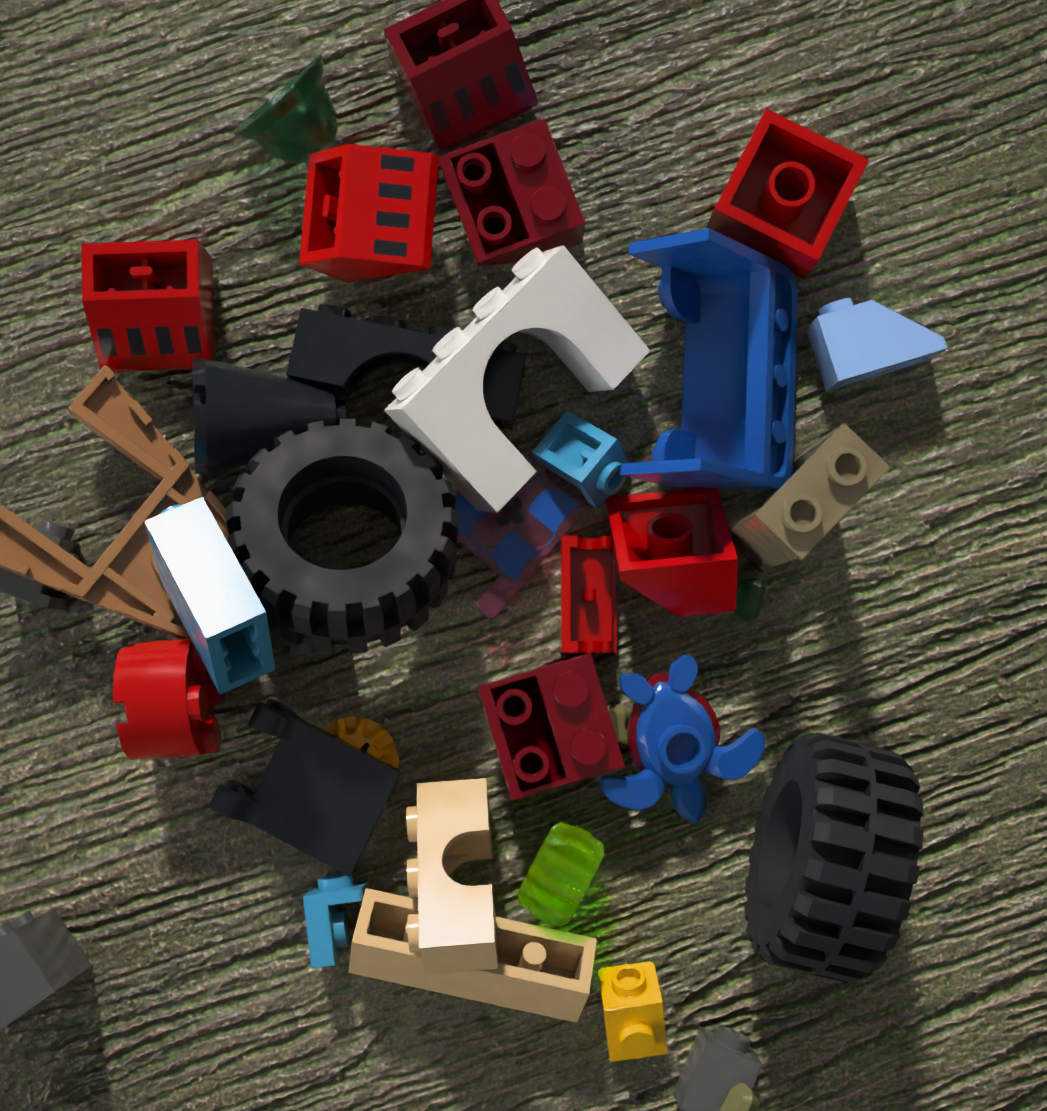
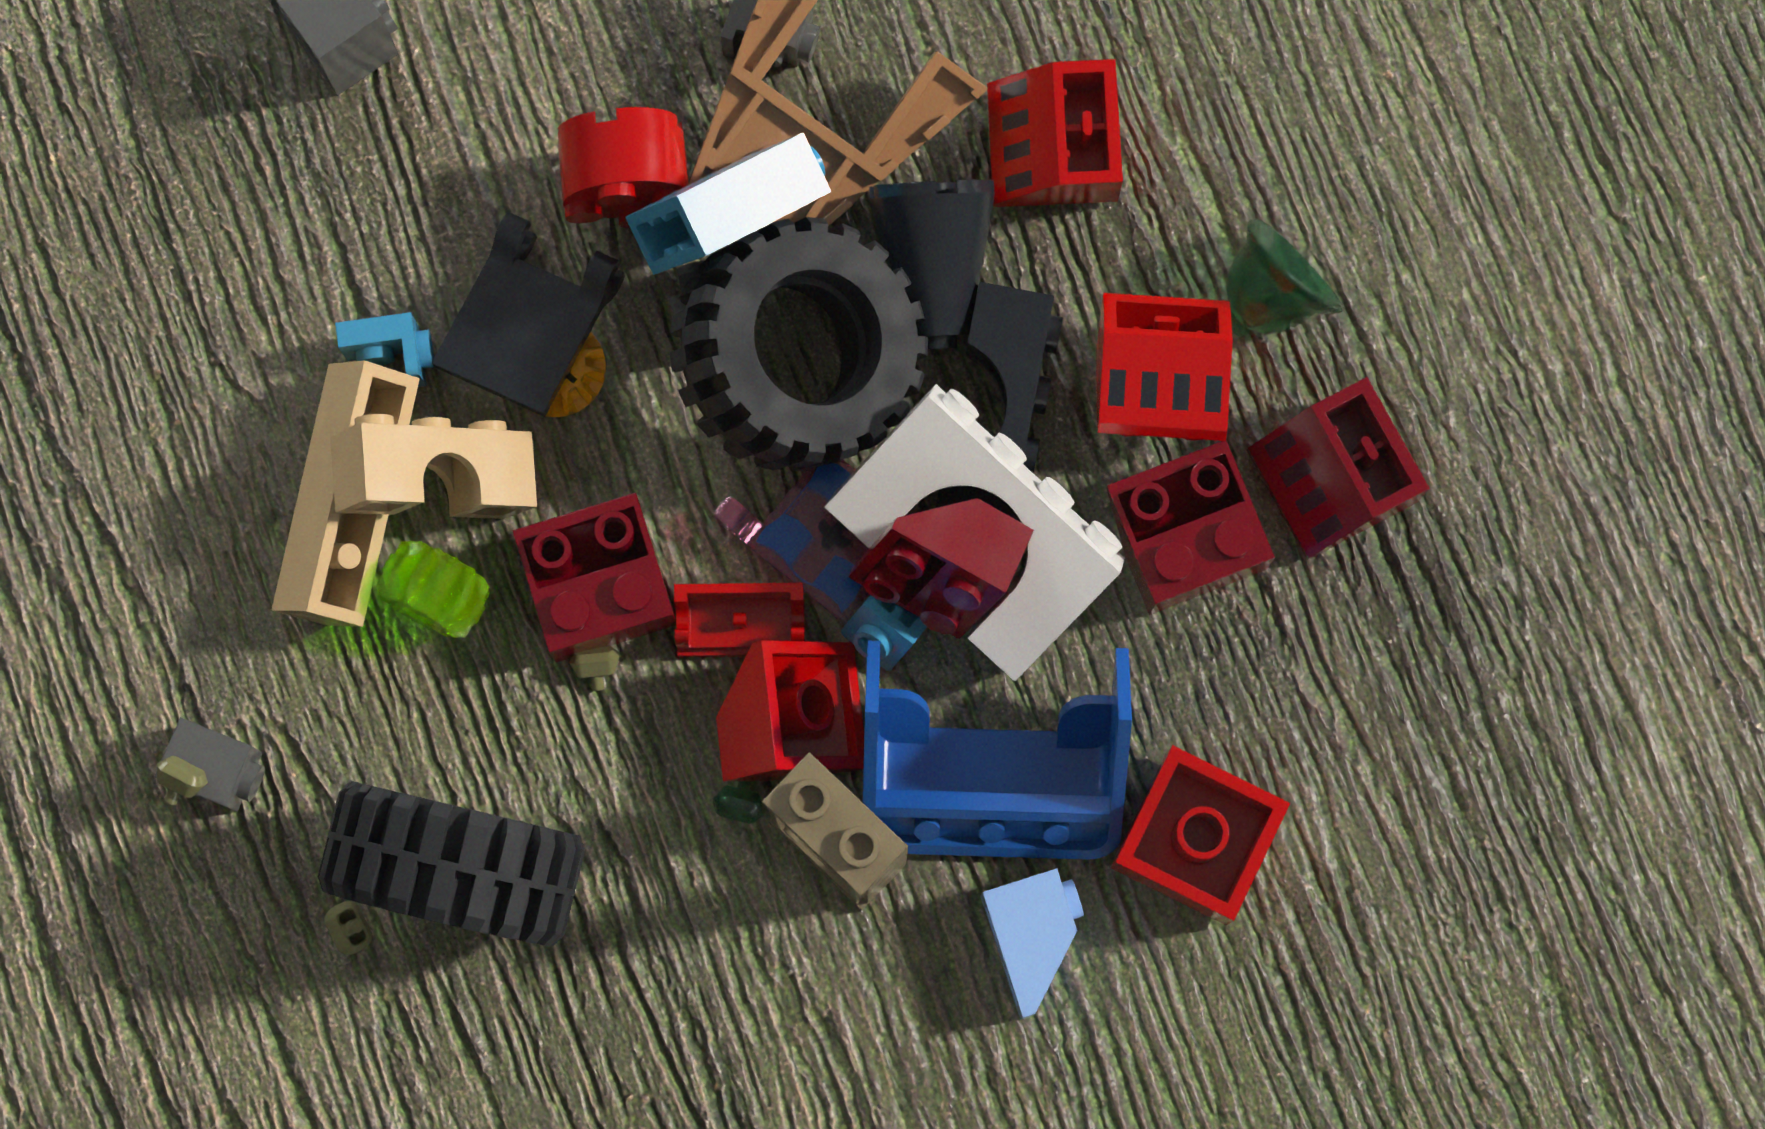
camera: 90 degrees right, 5 degrees down
(553, 399) = (945, 563): none -> dark red slope
(632, 1011) = (280, 673): yellow bracket -> none
(674, 742) = (574, 715): blue animal -> none

